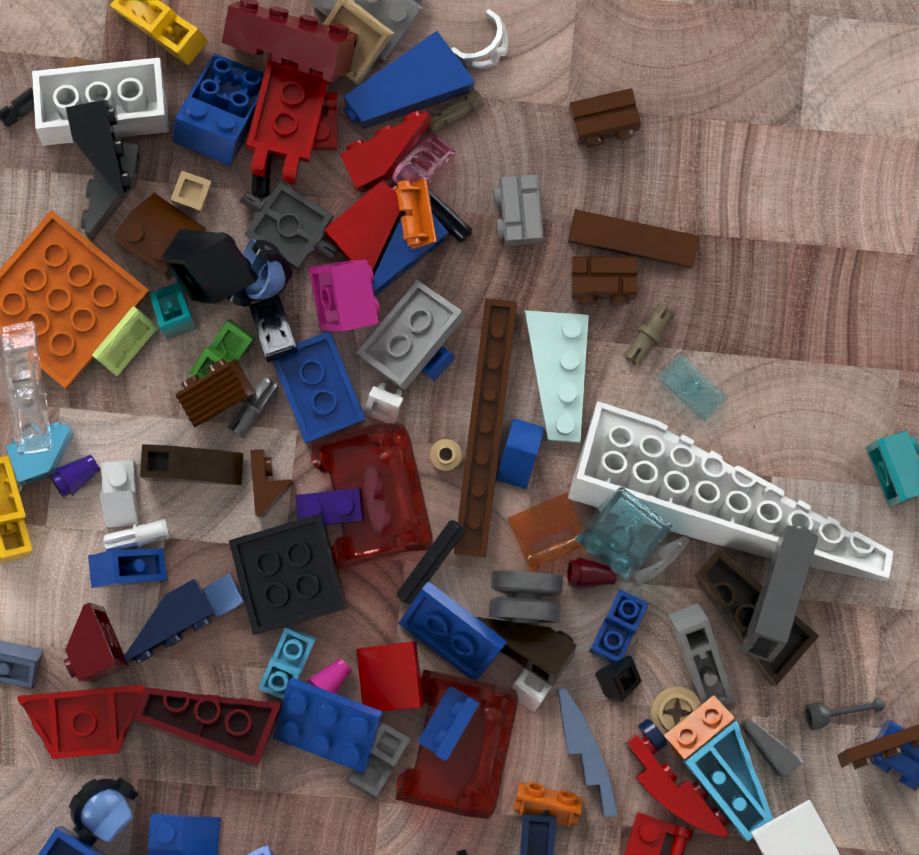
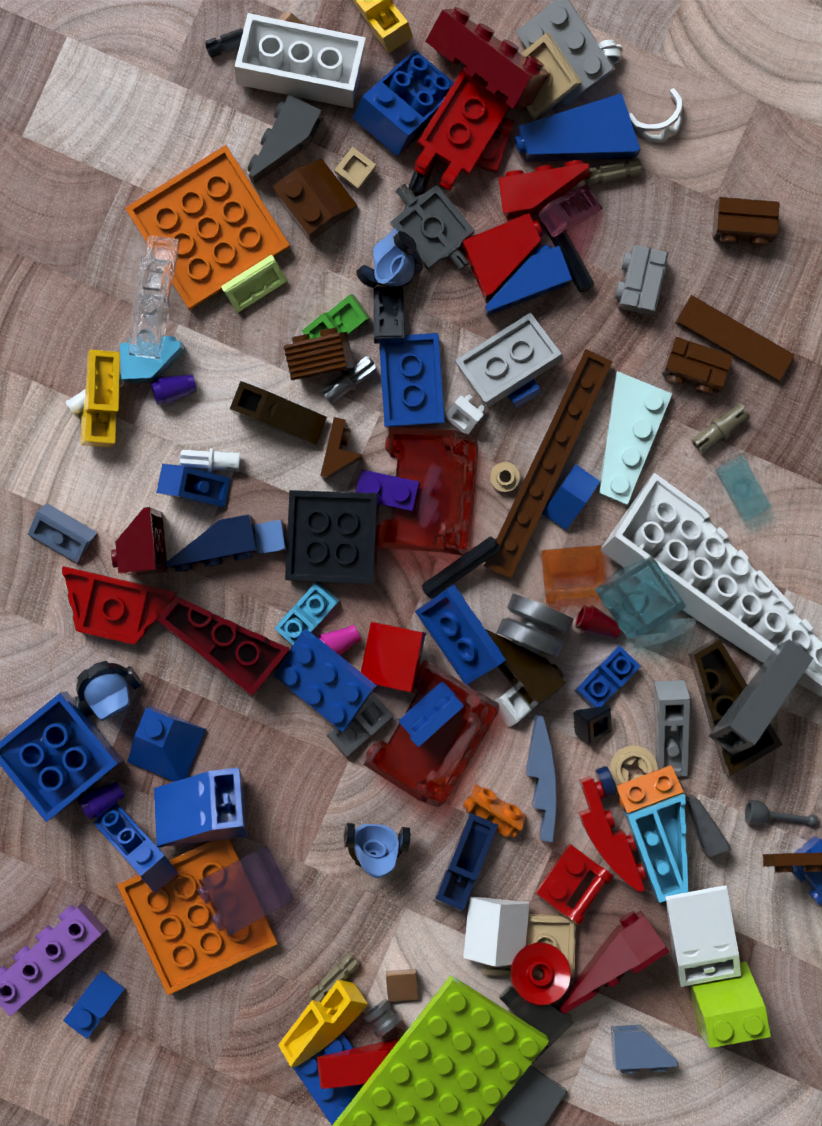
camera: 20 degrees right, 5 degrees up
(95, 136) = (285, 89): black slope -> none
(119, 494) = (206, 418): white slope -> none
(172, 311) = (304, 270): teal slope -> none
(208, 265) = (349, 239): black slope -> none
(344, 295) = (461, 306): dark pink slope -> none
(418, 222) = (549, 261): orange hinge -> none

